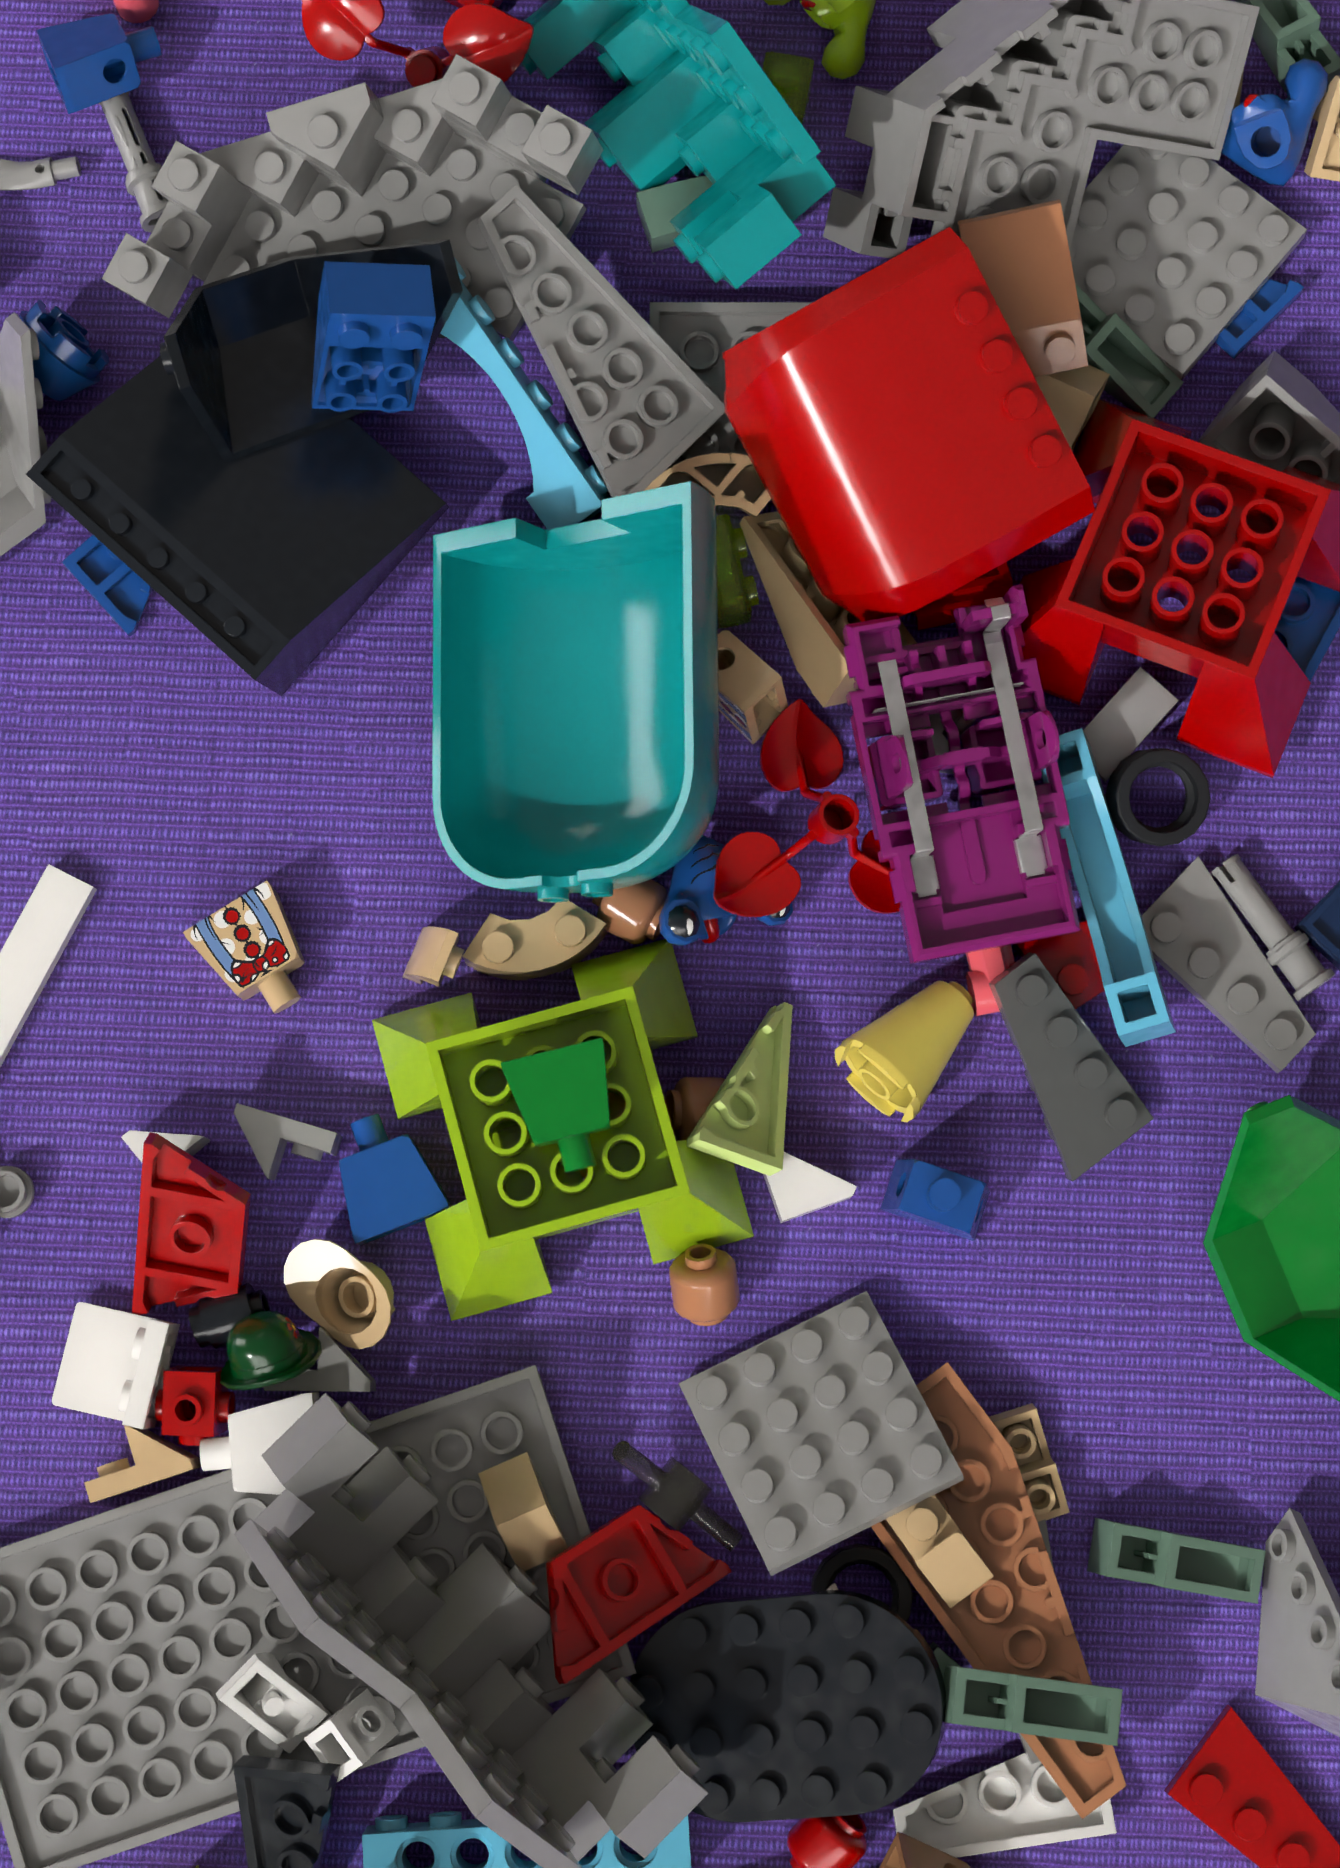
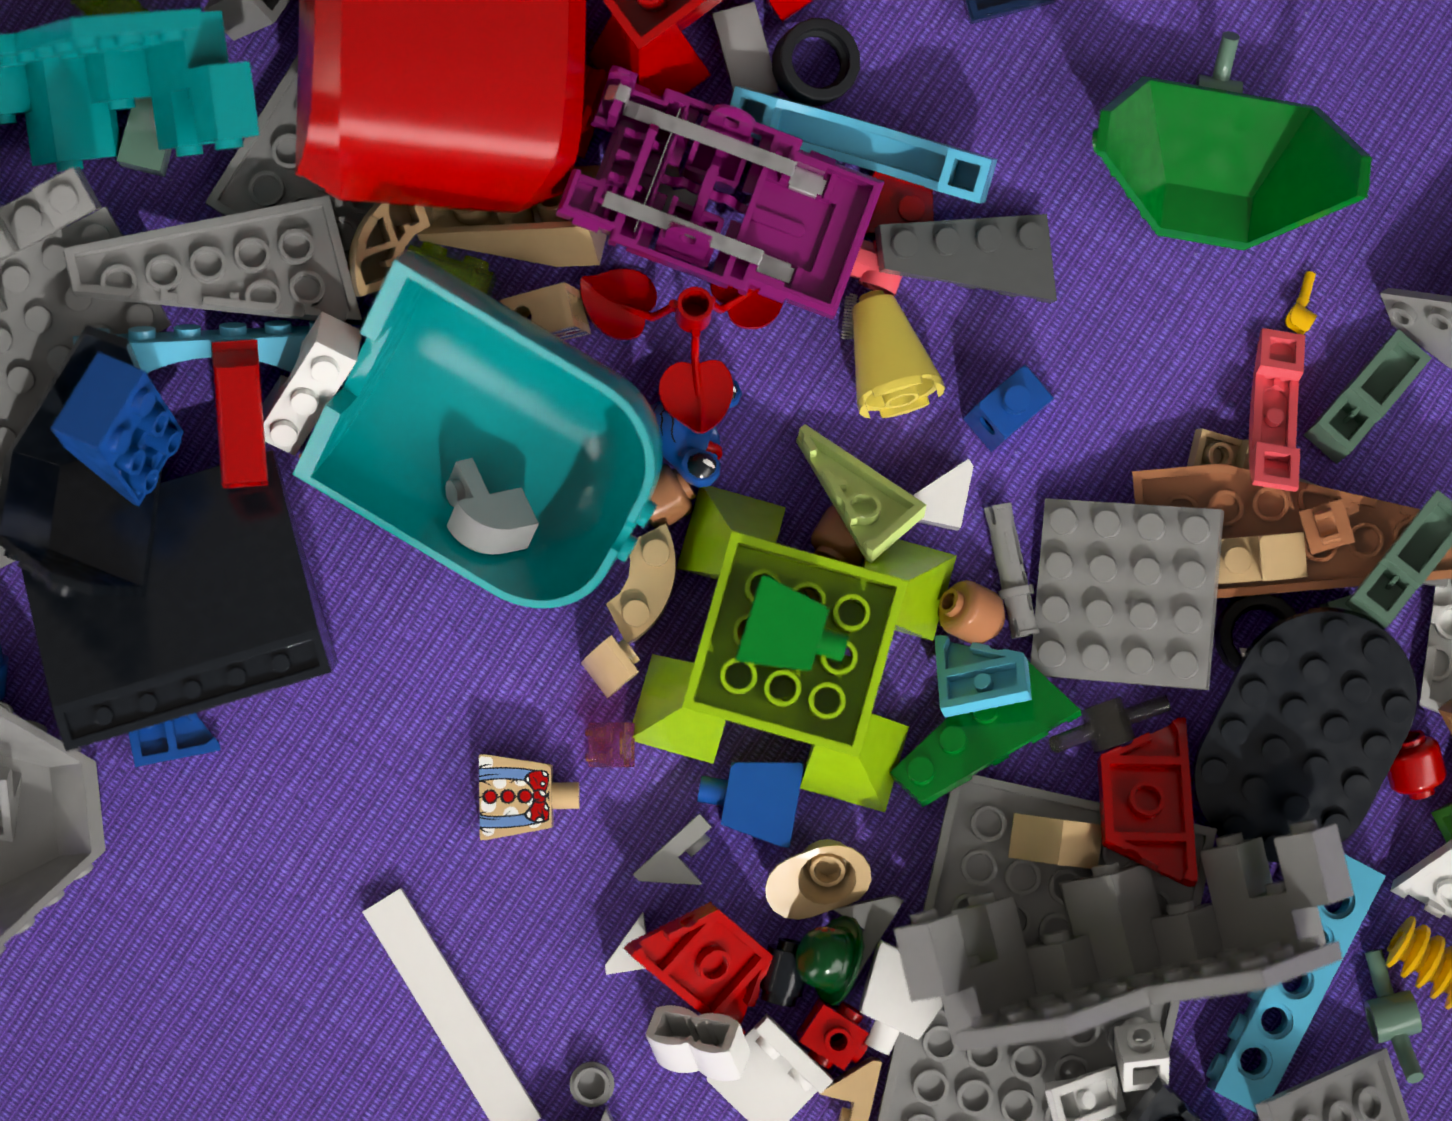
camera: 65 degrees left, 5 degrees up
(105, 1270) = (698, 1043): none -> white brick
(355, 1005) = (610, 744): none -> clear pink tile
(458, 446) = (239, 414): none -> red piece
(503, 751) = (487, 521): none -> light grey brick
(531, 496) = (320, 370): none -> white arch
(610, 1376) = (981, 738): none -> green wing
(642, 1331) = (979, 677): none -> medium azure wing
(765, 1307) = (1011, 571): none -> light grey pin
(926, 982) = (850, 320): none -> white leg
(1013, 1596) = (1326, 526): none -> nougat tile
(1101, 1472) = (1274, 410): none -> coral slope
(1212, 1440) = (1299, 318): none -> yellow hand
(1218, 962) = (964, 94): light grey wing -> none
(1285, 946) = (981, 39): light grey pin -> none

